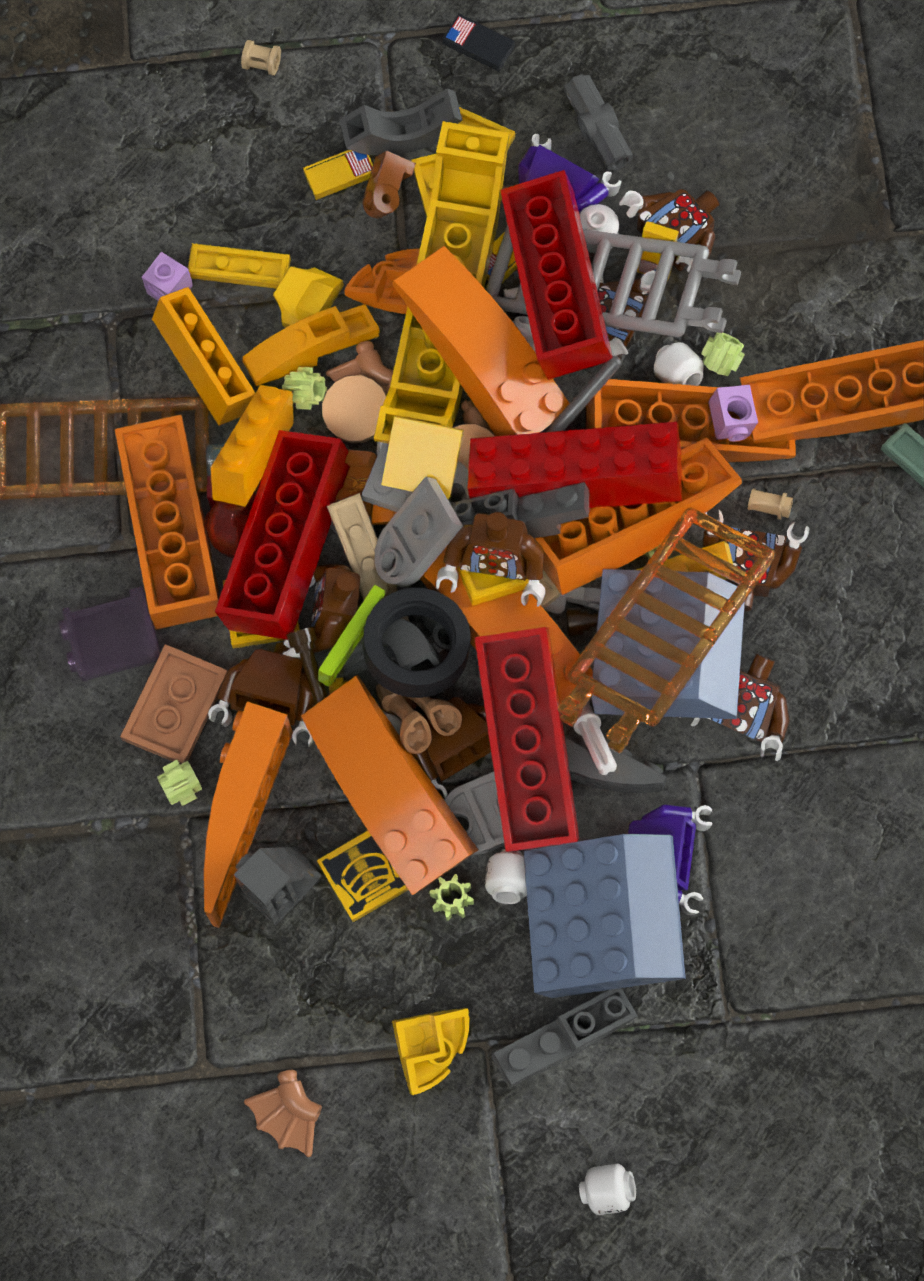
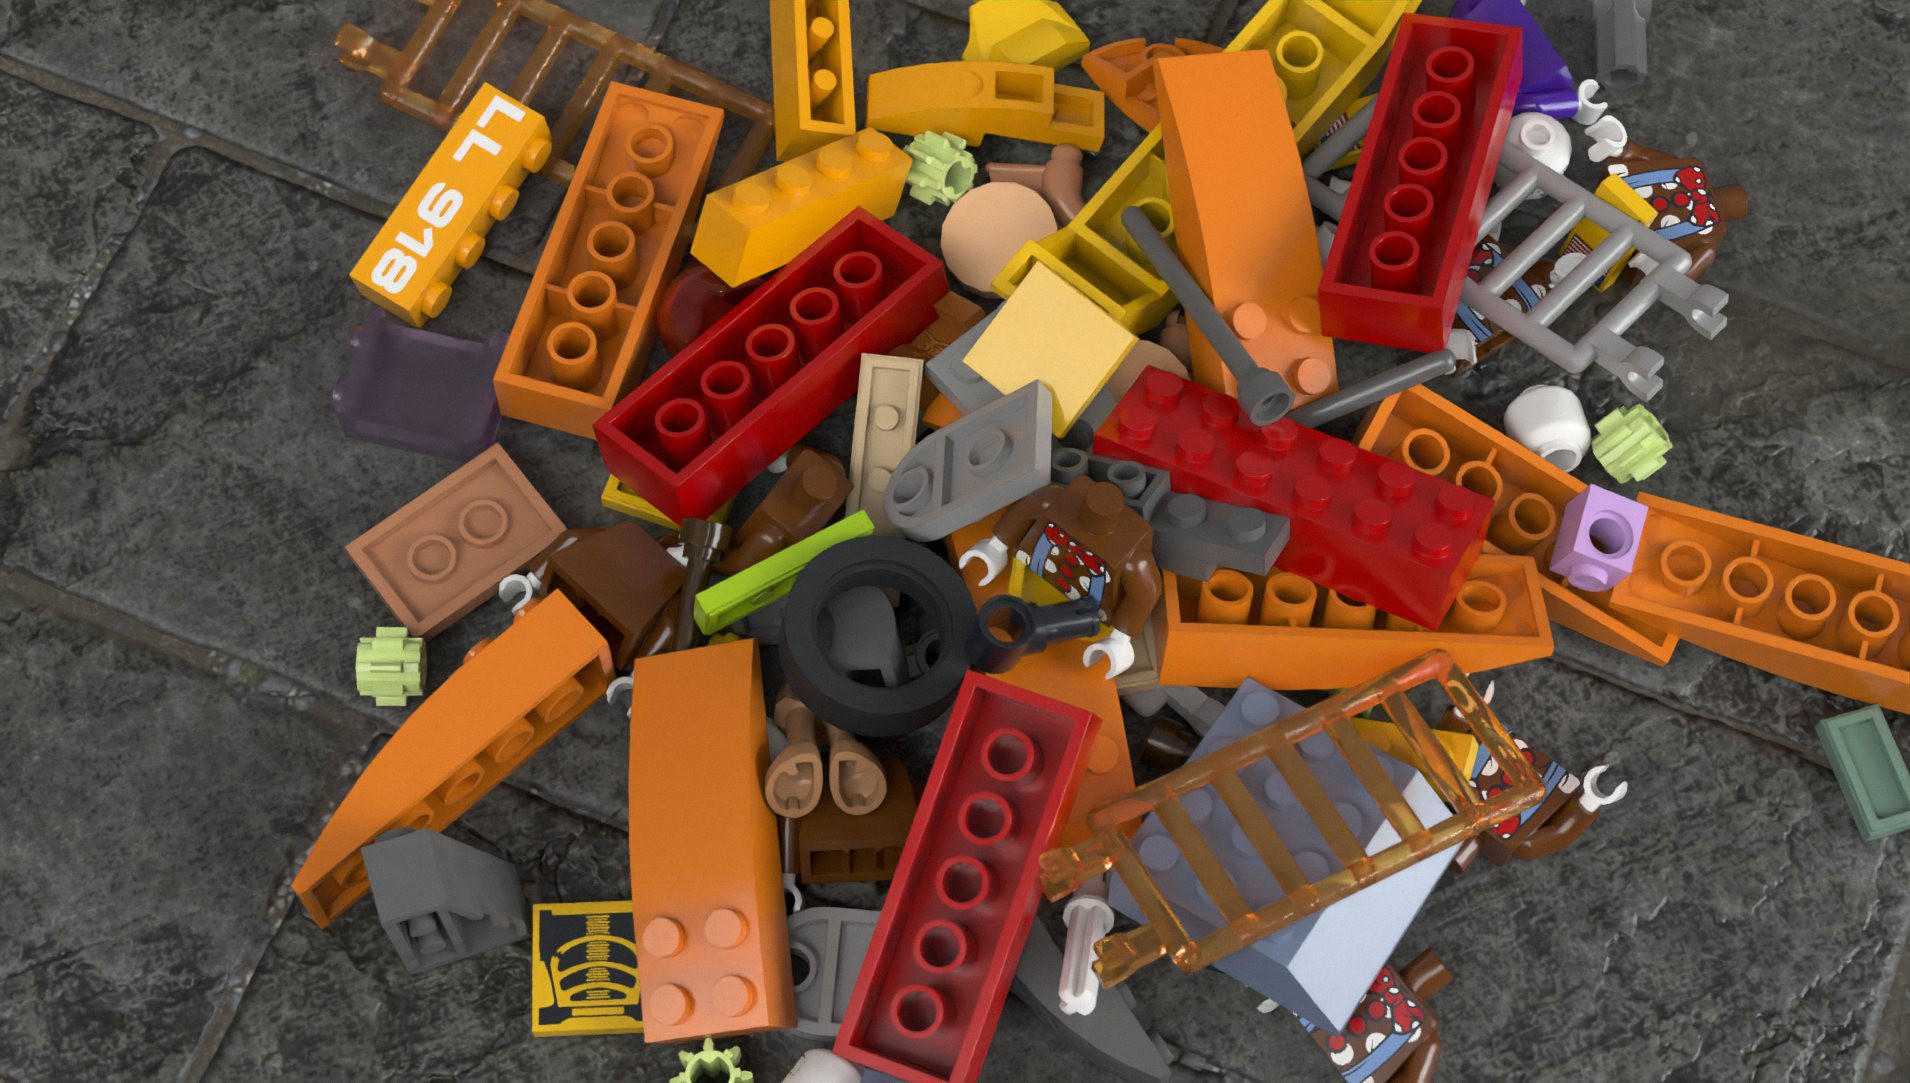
camera: 20 degrees right, 5 degrees down
(71, 535) = (453, 206): none -> light orange brick
(488, 600) = (1028, 627): none -> black pin
(538, 426) = (1261, 392): none -> dark grey piece
(770, 503) = (1585, 719): tan pin -> none

